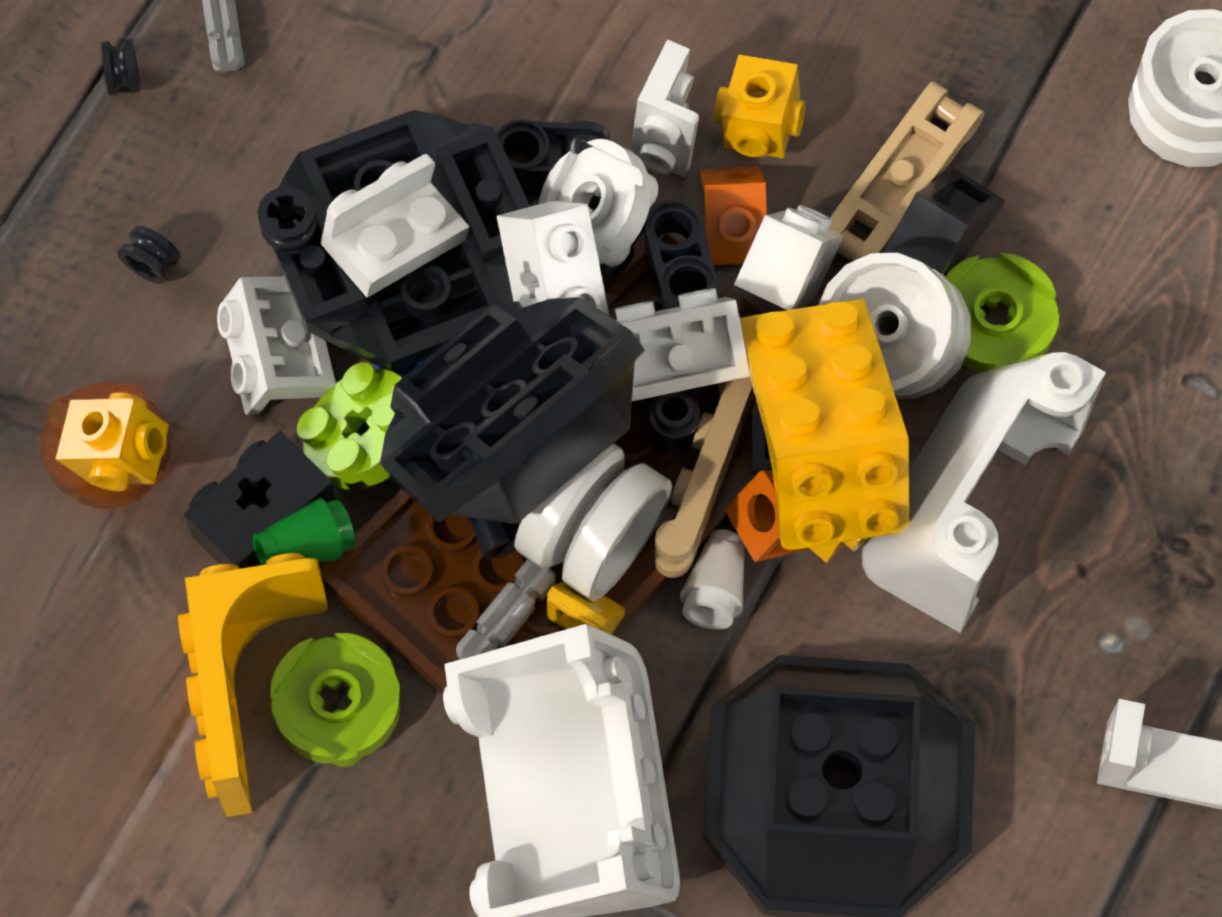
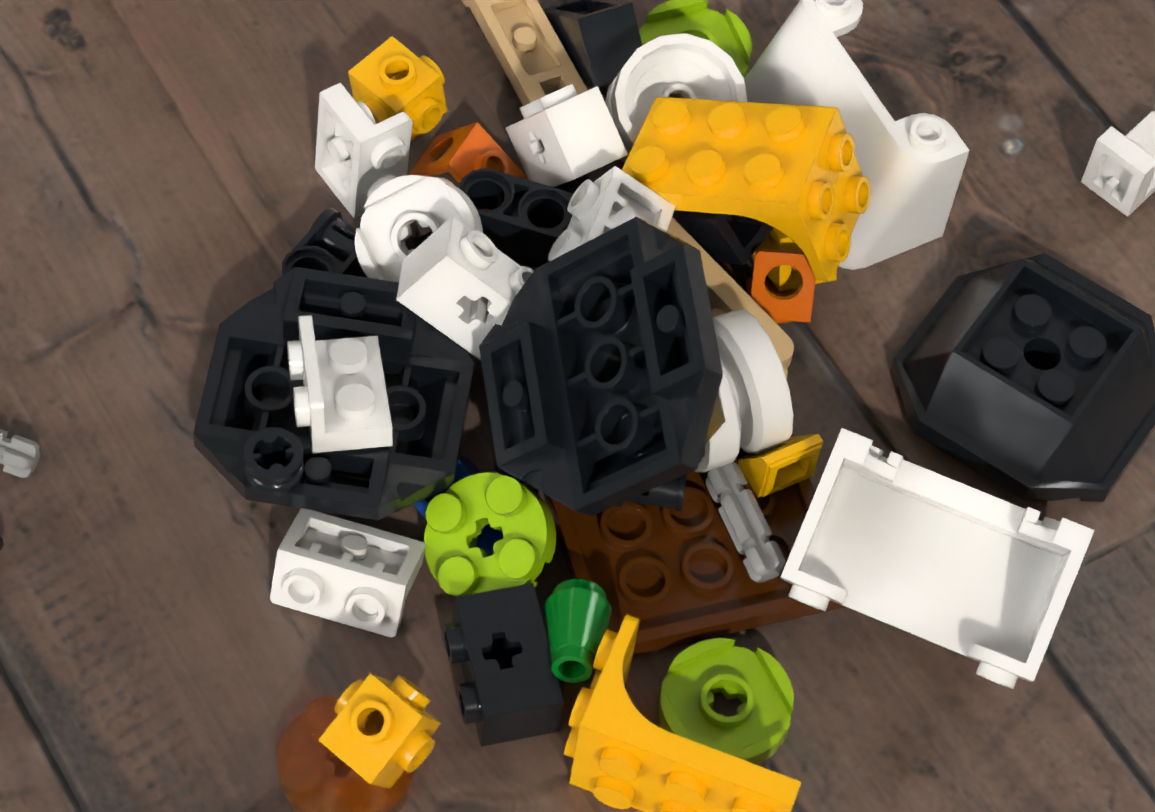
camera: 65 degrees left, 10 degrees down
(149, 254) = (183, 622): black bush -> none
(715, 584) = (814, 372): white cone -> none

